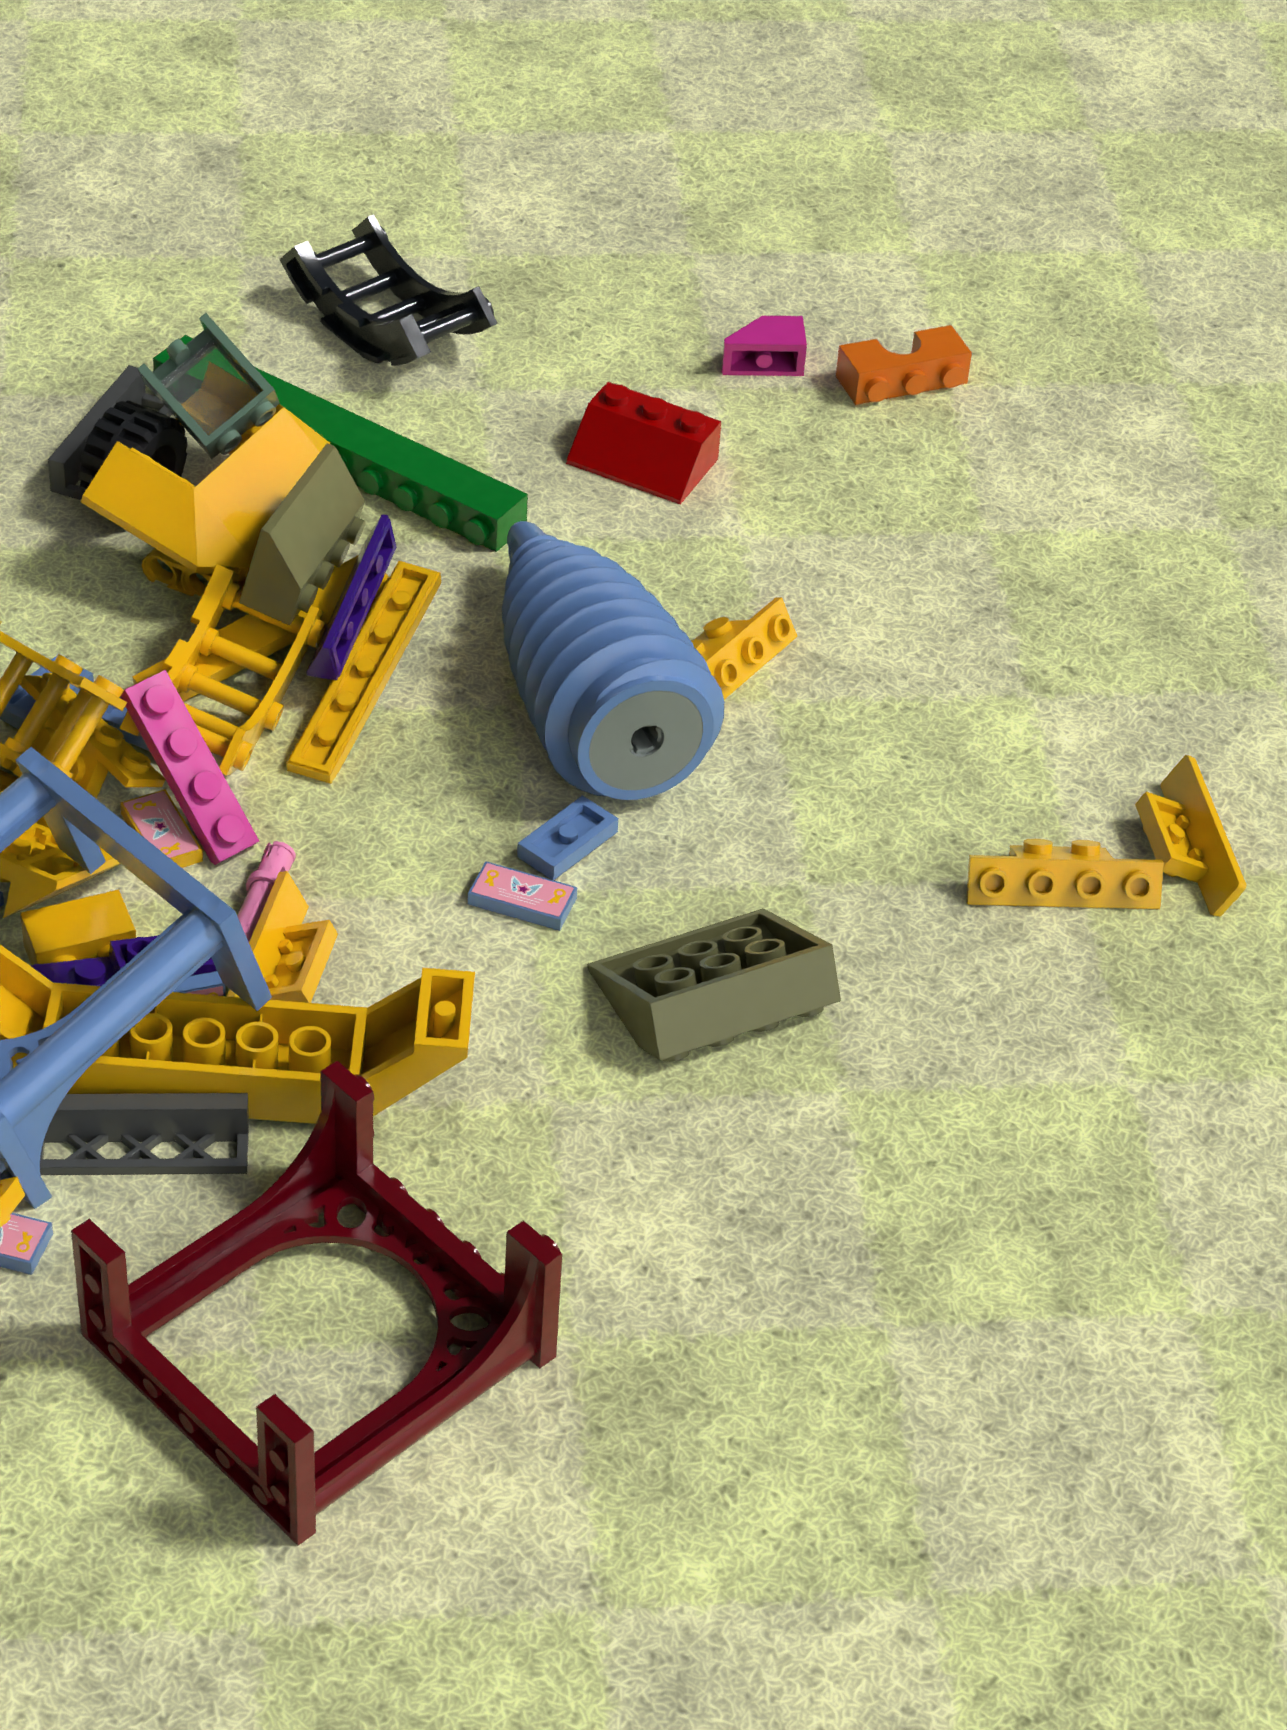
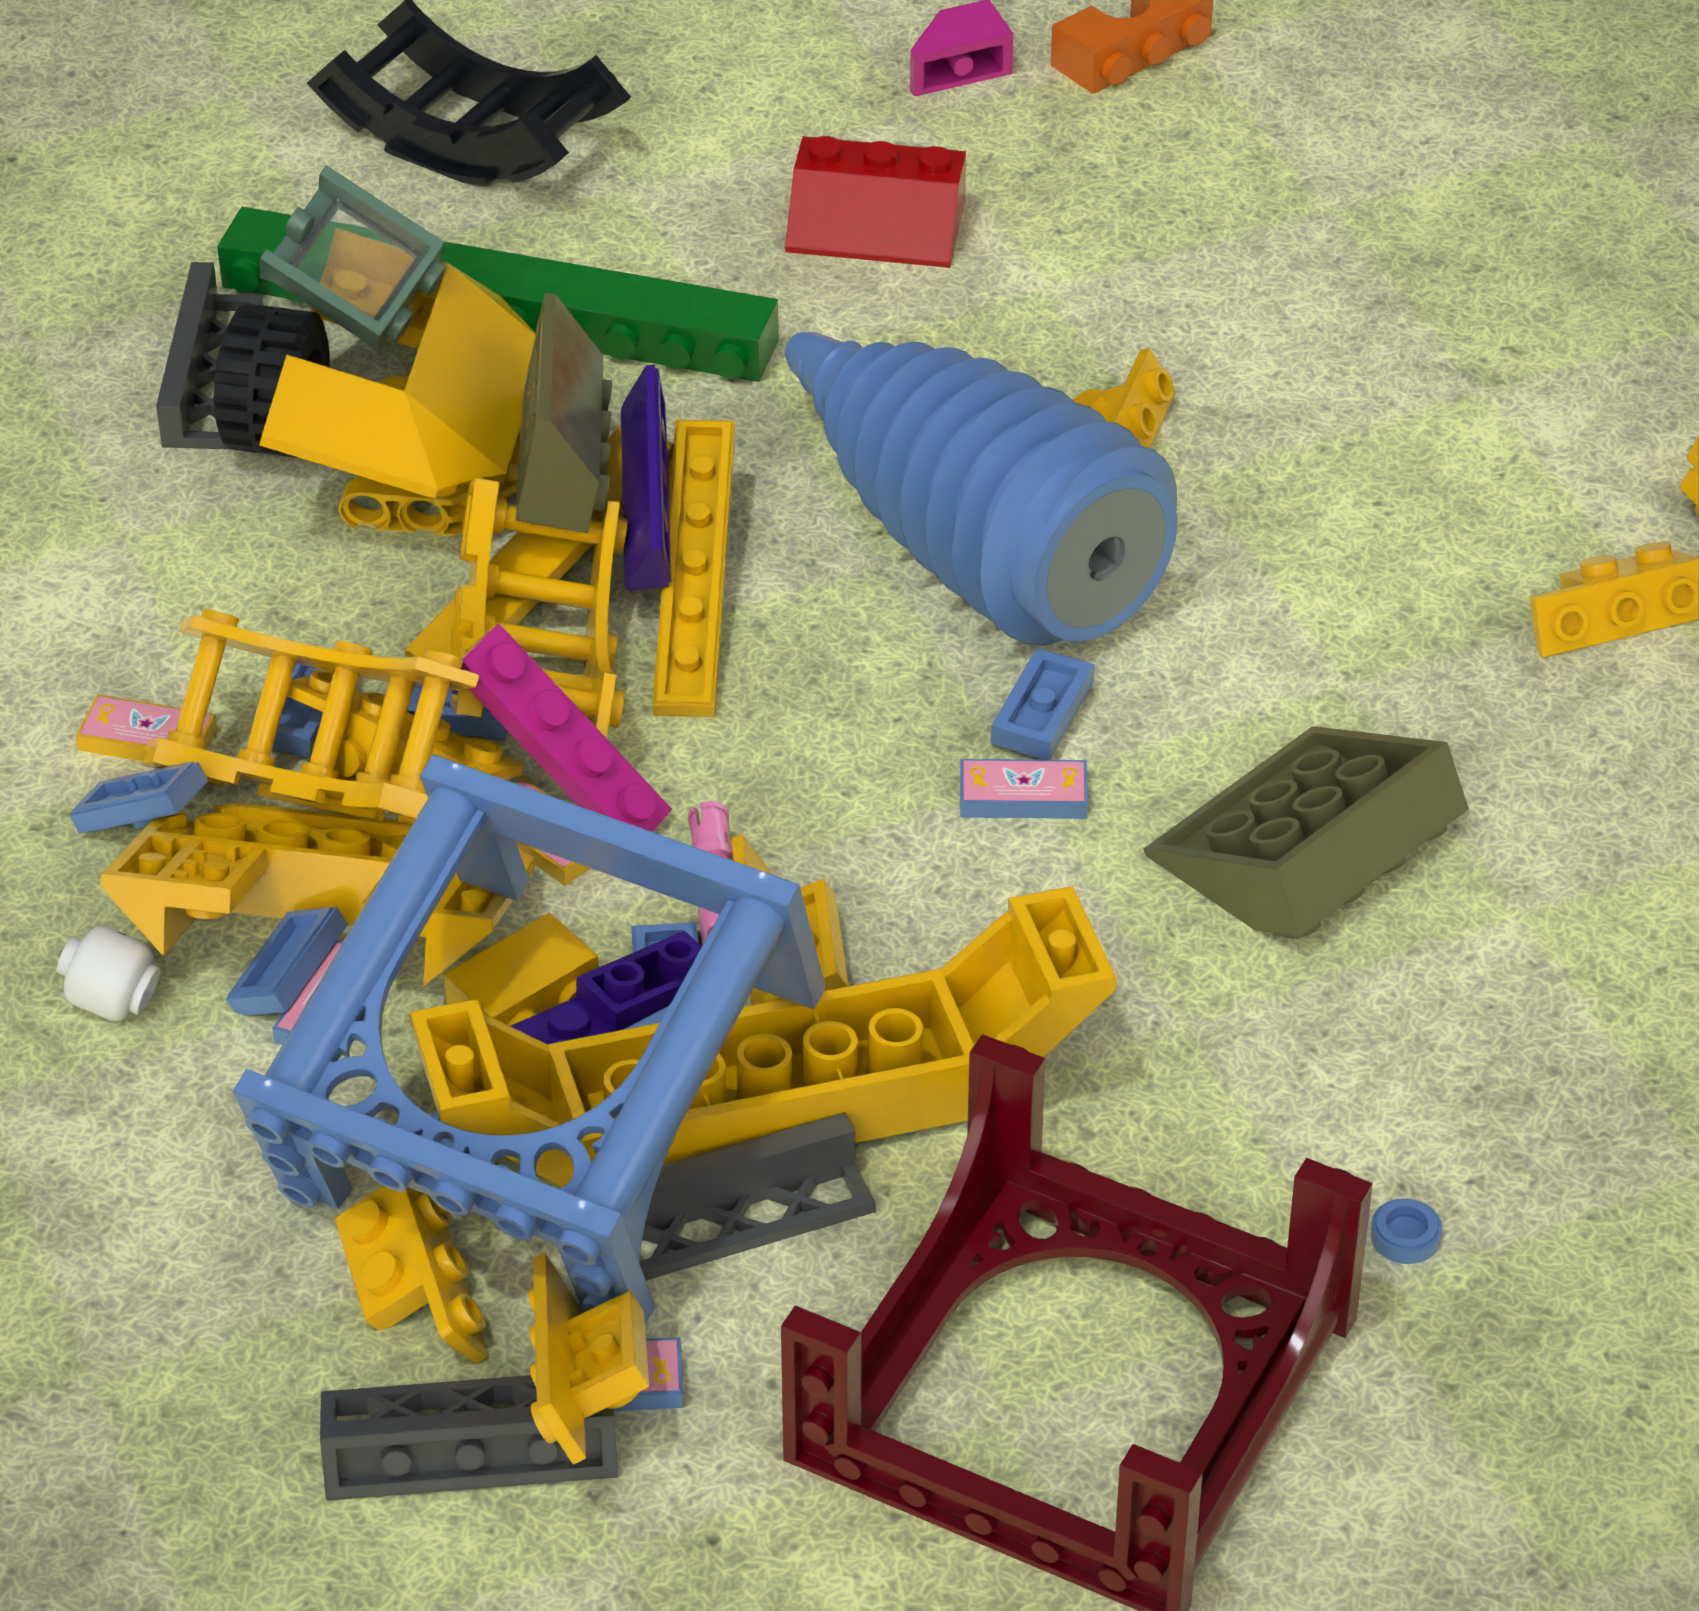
camera: 15 degrees left, 0 degrees up
(626, 1302) = (1406, 1231): none -> medium blue tile

